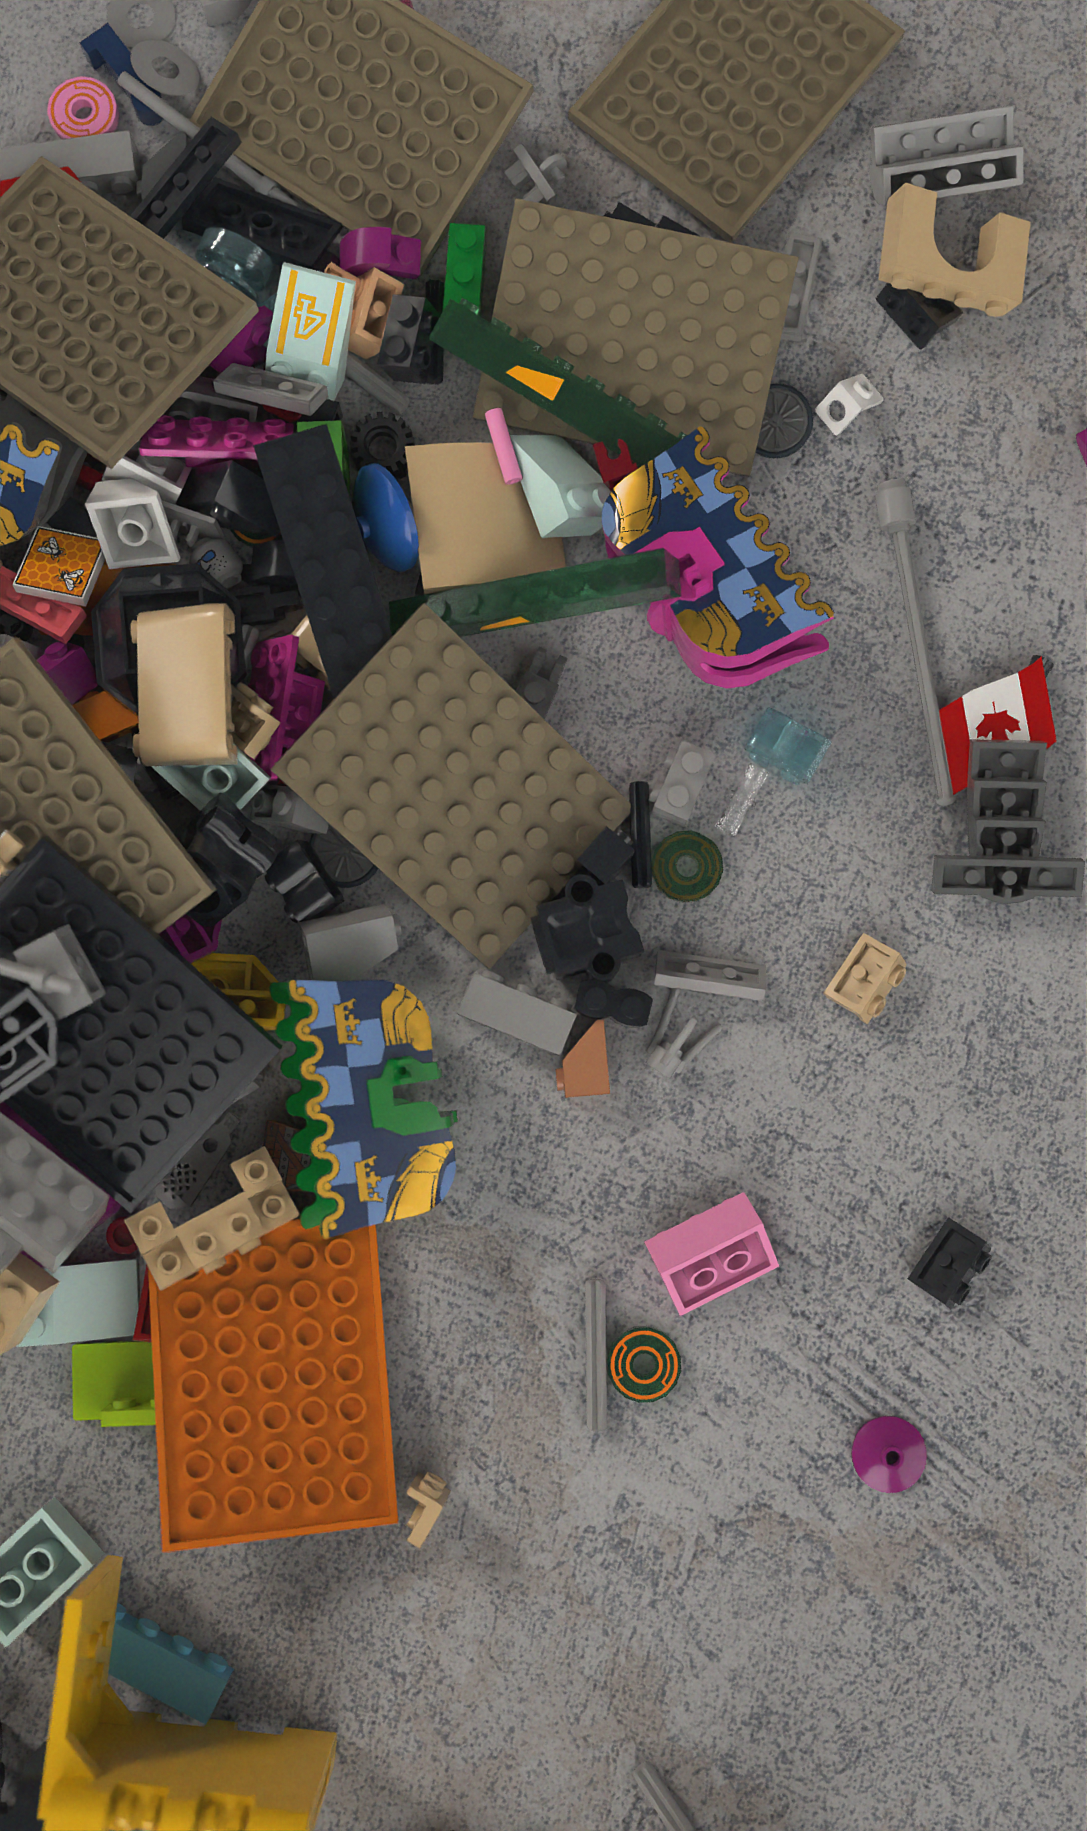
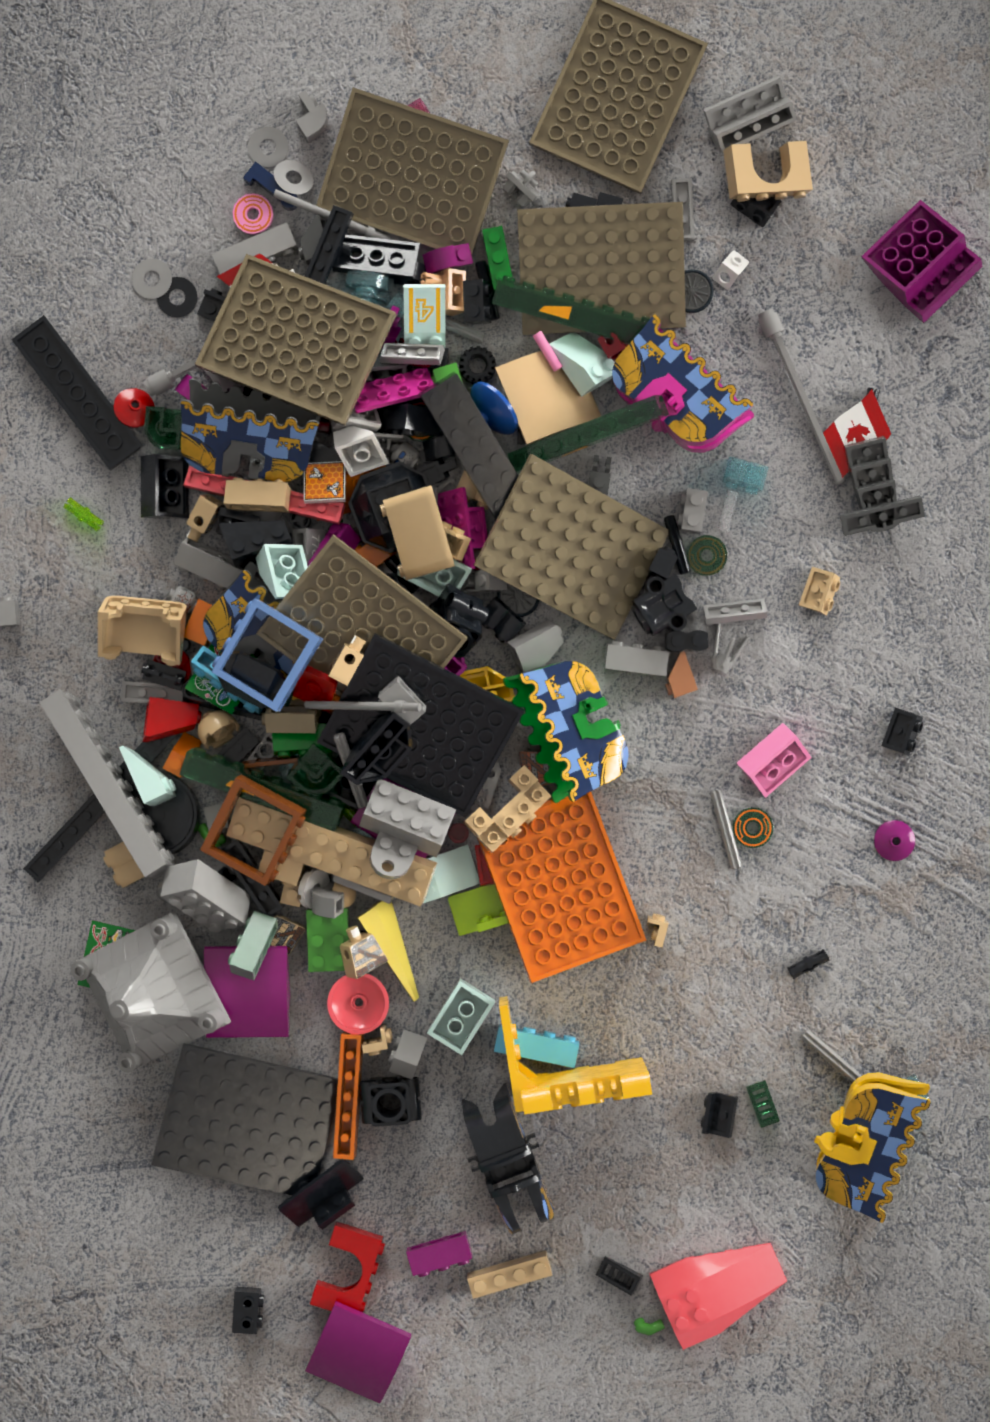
camera: 15 degrees left, 5 degrees up
(680, 1640) = (808, 964): none -> black pin

